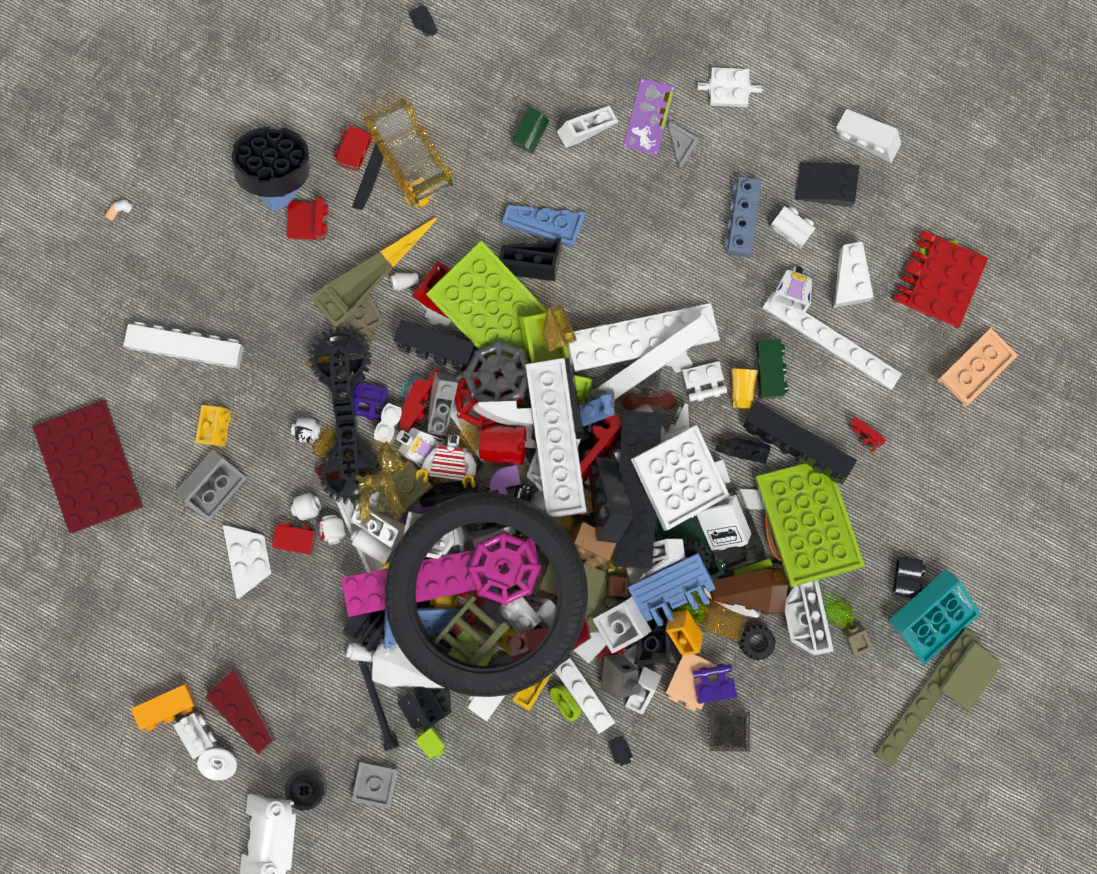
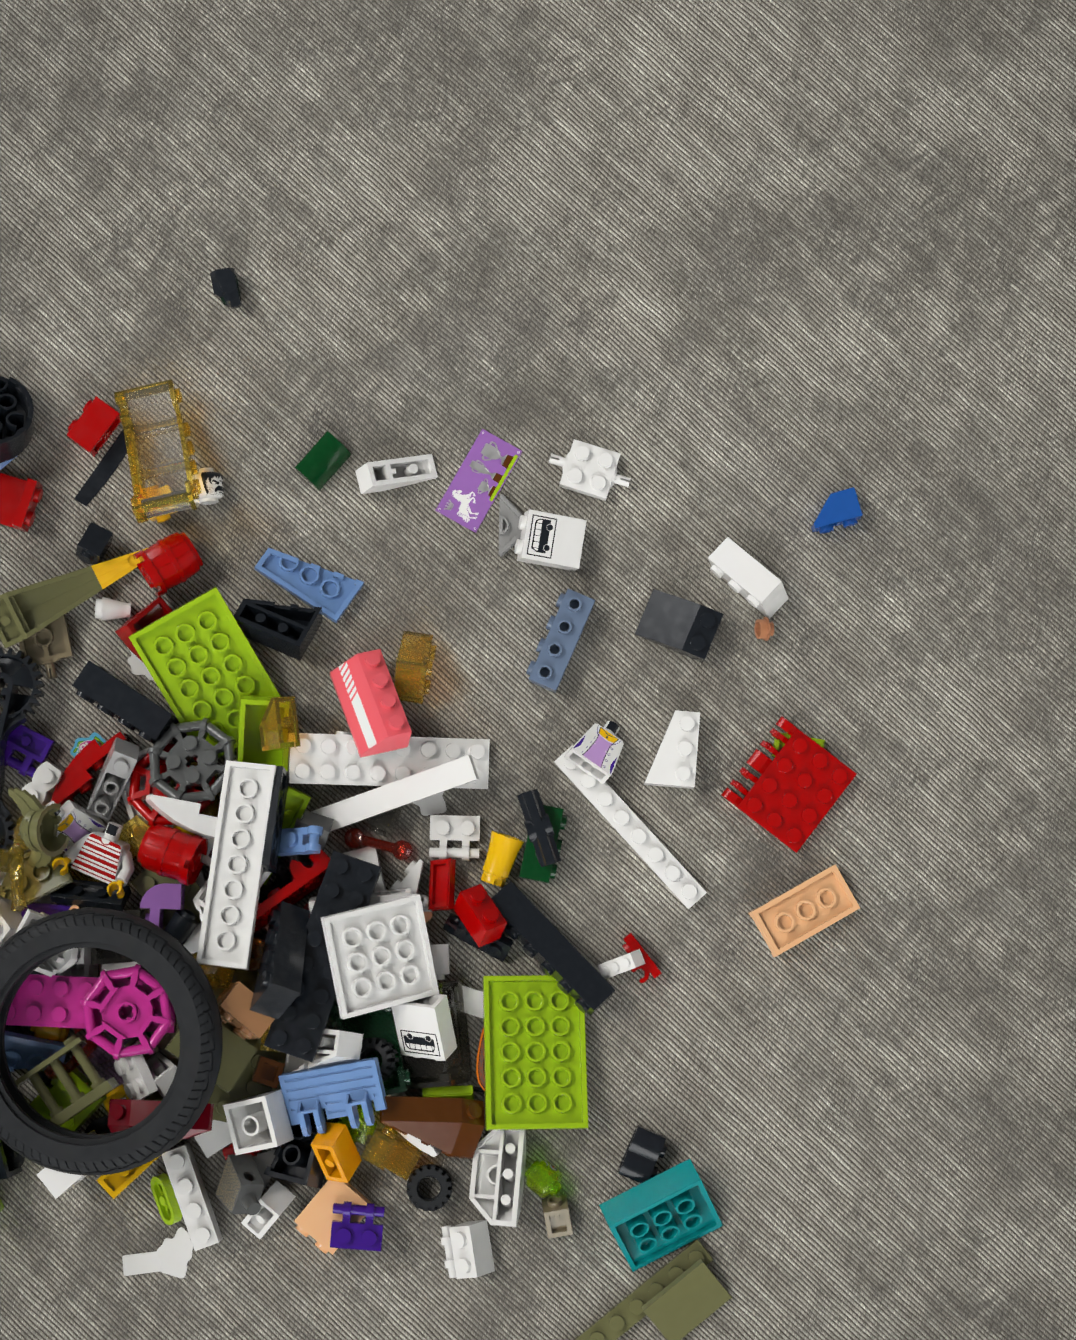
camera: 15 degrees right, 0 degrees up
(377, 235) = (94, 544): none -> black brick
(399, 451) = (39, 828): none -> olive helmet
(438, 234) = (169, 562): none -> red piece
(456, 169) = (211, 486): none -> white head
(563, 754) = (141, 1263): none -> white sticker
(582, 742) = (176, 1254): none -> white sticker
(619, 297) = (371, 704): none -> coral slope
(620, 750) = (218, 1278): black brick -> none
(641, 262) = (413, 666): none -> clear yellow brick
(705, 418) = (442, 884): none -> red tile
(716, 145) = (550, 540): none -> white brick
(729, 731) = (360, 1290): clear smoke brick -> none
(741, 432) = (480, 915): none -> red brick
(768, 356) = (539, 828): none -> black piece
(793, 226) = (620, 669): white brick -> none
(801, 679) = (467, 1249): none -> white brick
(855, 440) = (621, 964): none -> white piece
(890, 170) = (764, 629): none -> nougat plate
(921, 68) = (838, 509): none -> blue slope

